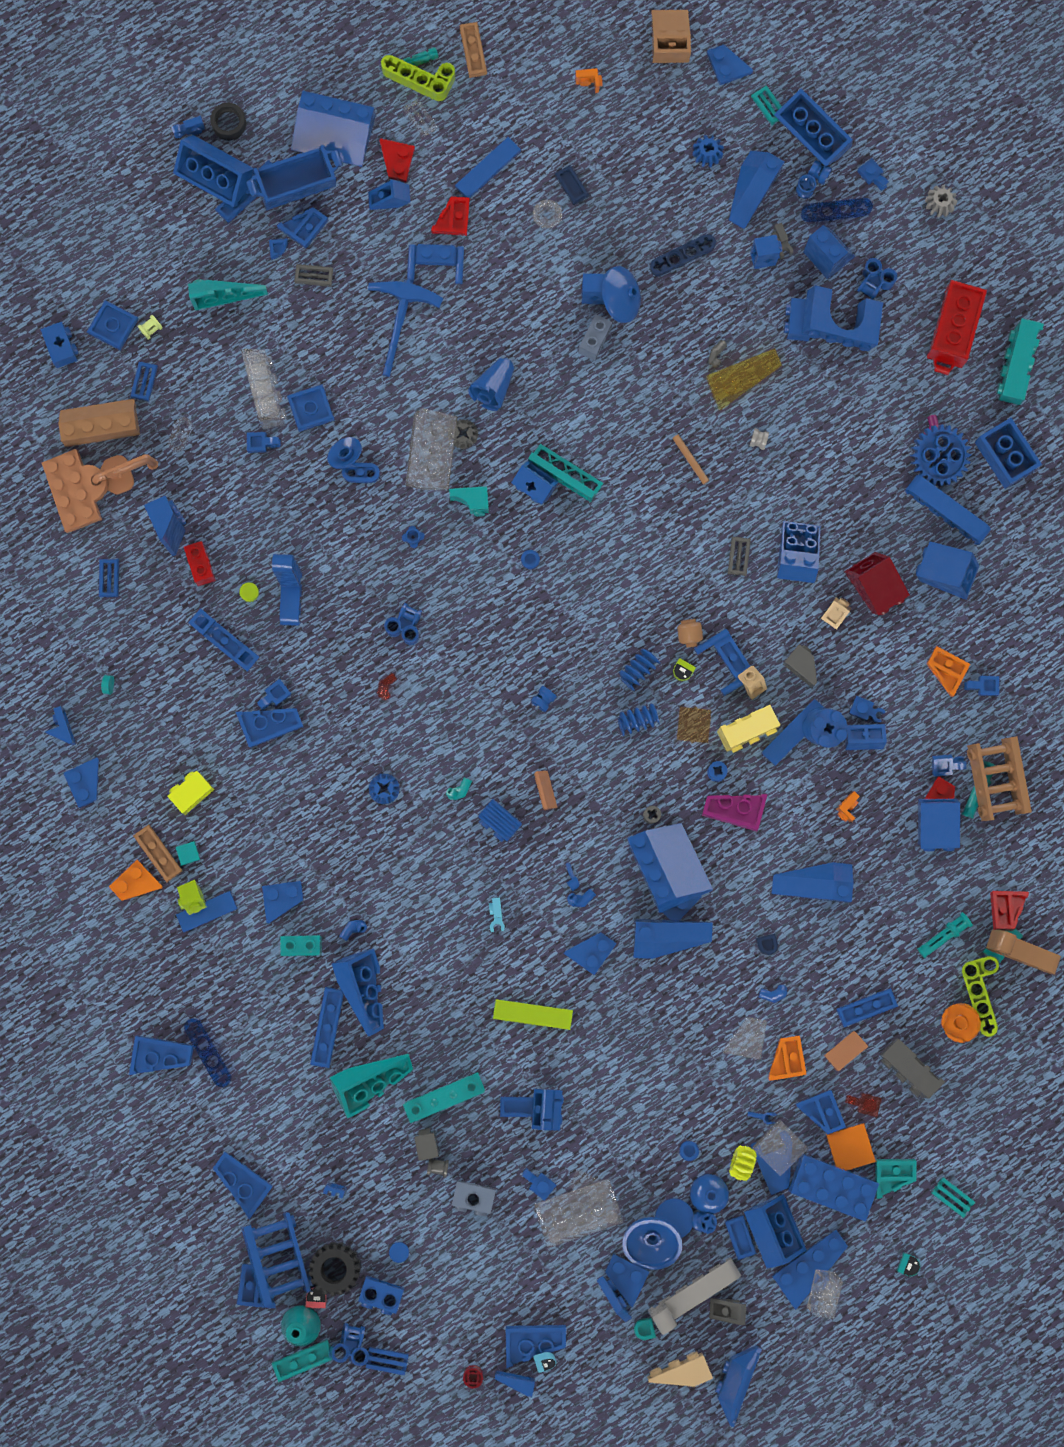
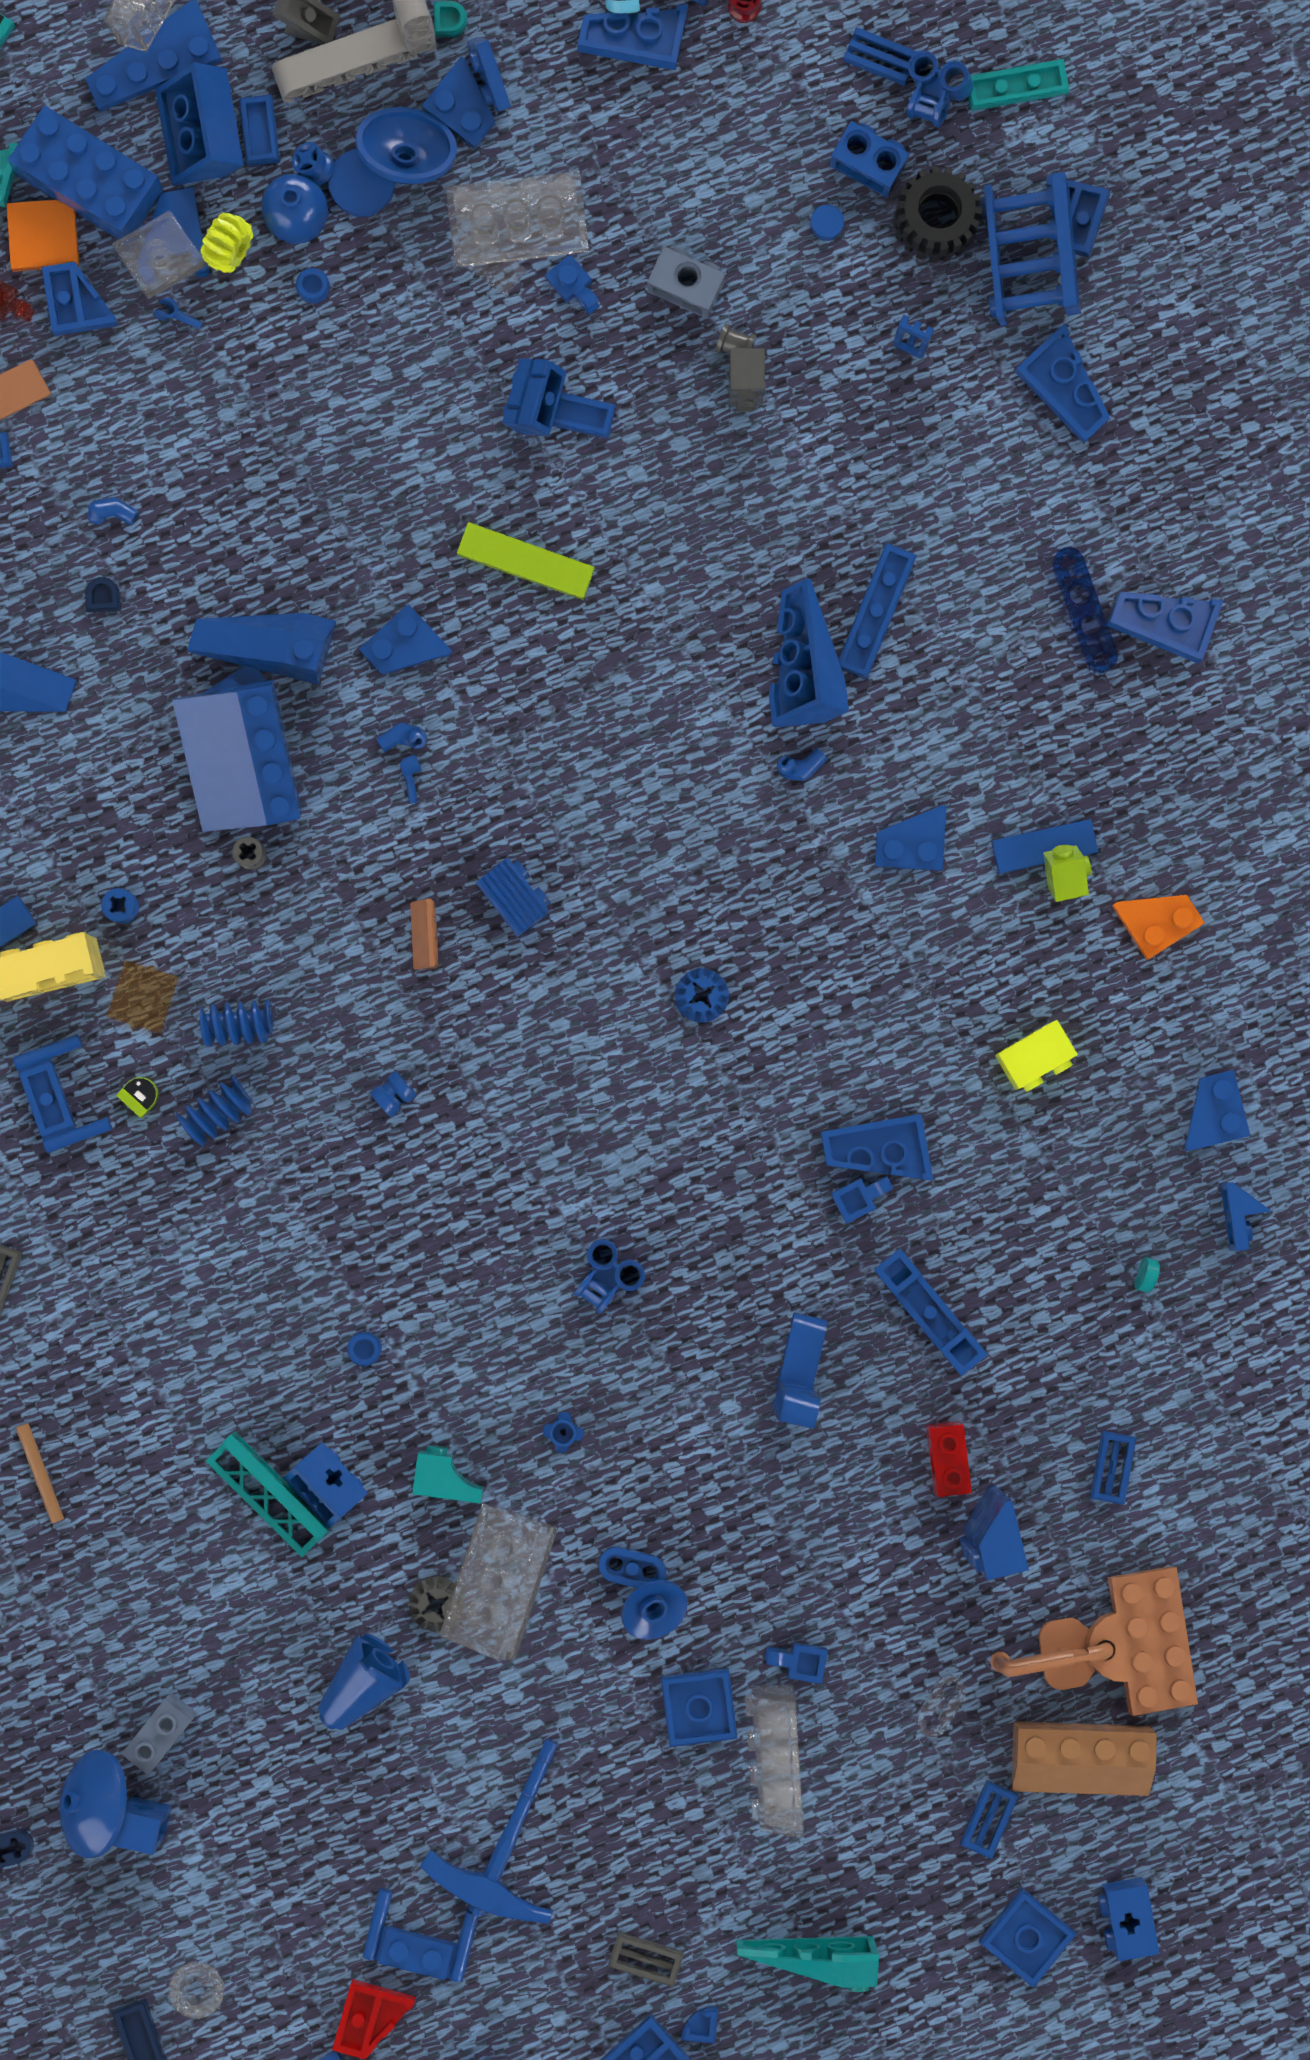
camera: 170 degrees left, 5 degrees up
(150, 327) = (960, 1919): yellowish green bush -> none
(157, 853) = (1110, 963): medium nougat tile -> none
(188, 853) = (1059, 952): teal tile -> none
(249, 592) = (870, 1391): lime tile -> none
(301, 945) = (895, 753): teal brick -> none
(303, 1320) = (1012, 136): teal cone -> none
(316, 1299) = (979, 174): tile -> none
(361, 1083) = (840, 505): teal wedge -> none
(383, 686) = (667, 1173): clear red arm -> none
(444, 1097) = (701, 447): teal fence -> none
(459, 792) = (572, 963): teal arm -> none
(495, 908) = (551, 747): medium azure plate -> none
(690, 632) = (111, 1158): medium nougat head -> none
(736, 810) = (102, 833): magenta wing -> none
(747, 1039) = (172, 444): clear wing -> none
(753, 682) = (21, 1048): tan bracket -> none
(788, 1059) = (113, 397): orange wing -> none

